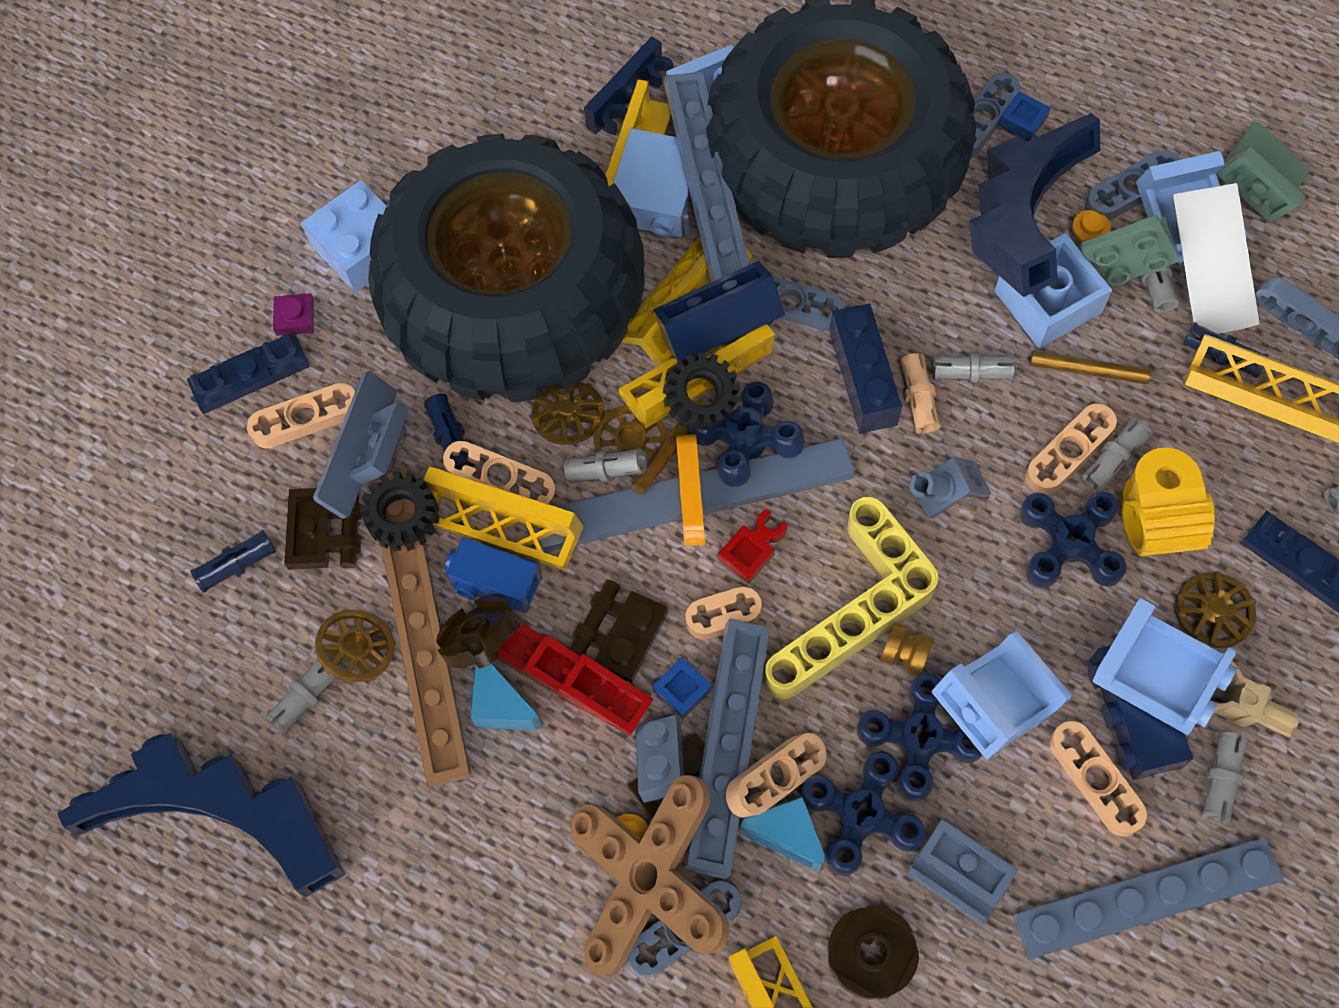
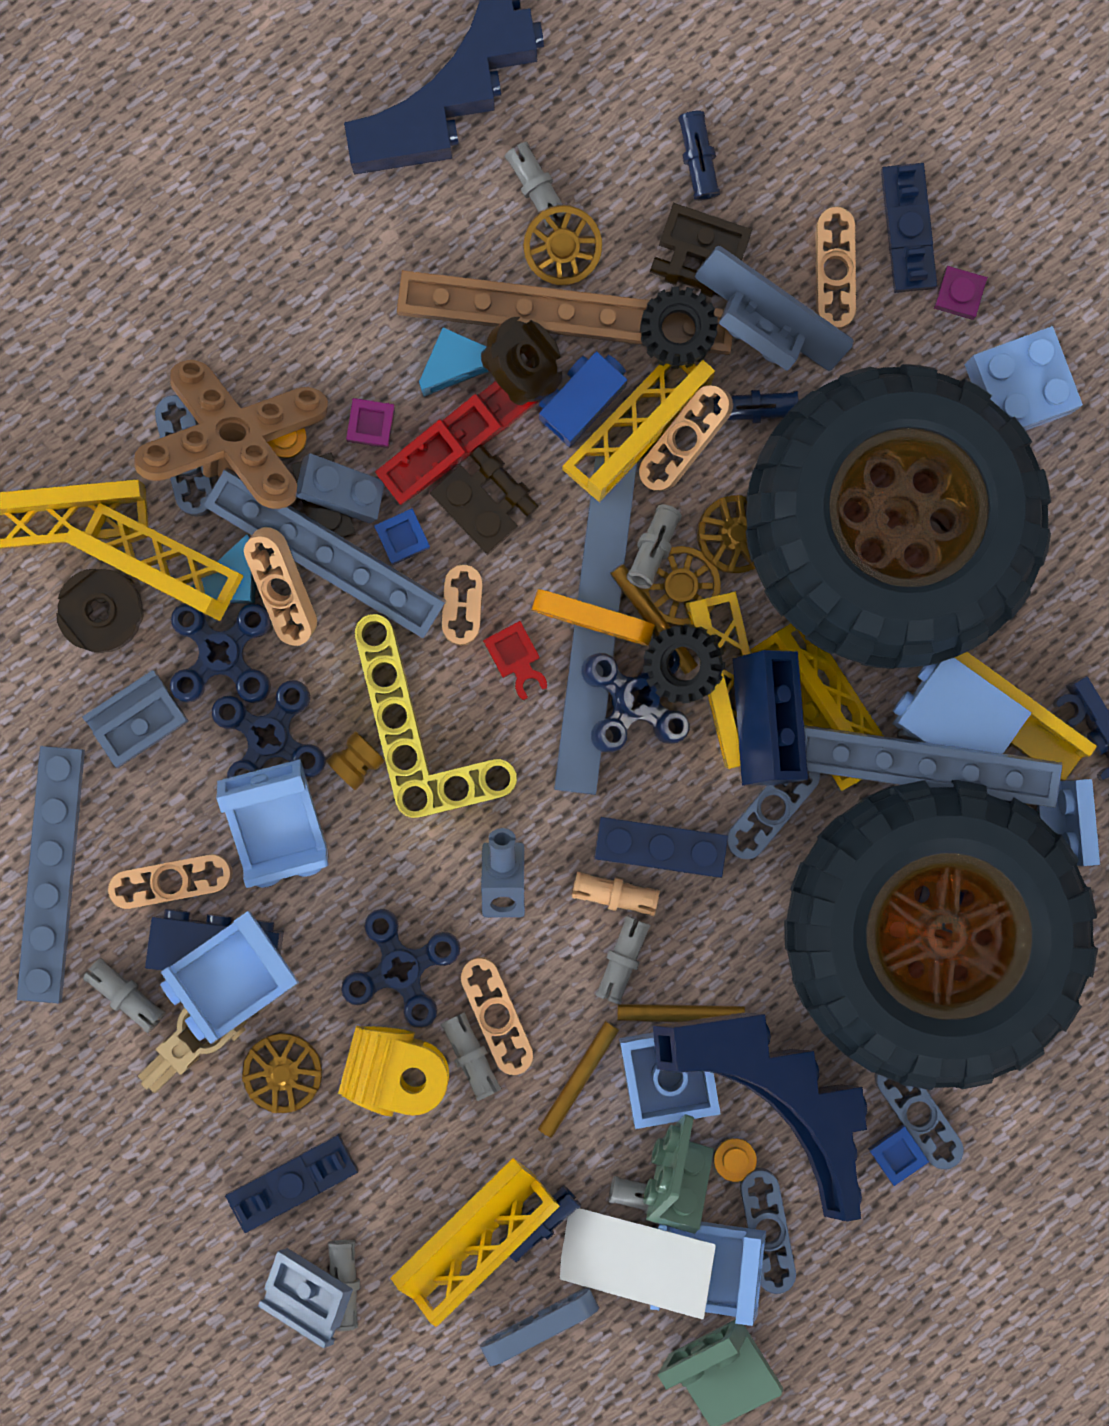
camera: 100 degrees right, 20 degrees up
(585, 758) = (370, 423): none -> magenta plate
(820, 906) = (142, 570): none -> yellow fence
(994, 310) = (672, 1013): none -> pearl gold bar

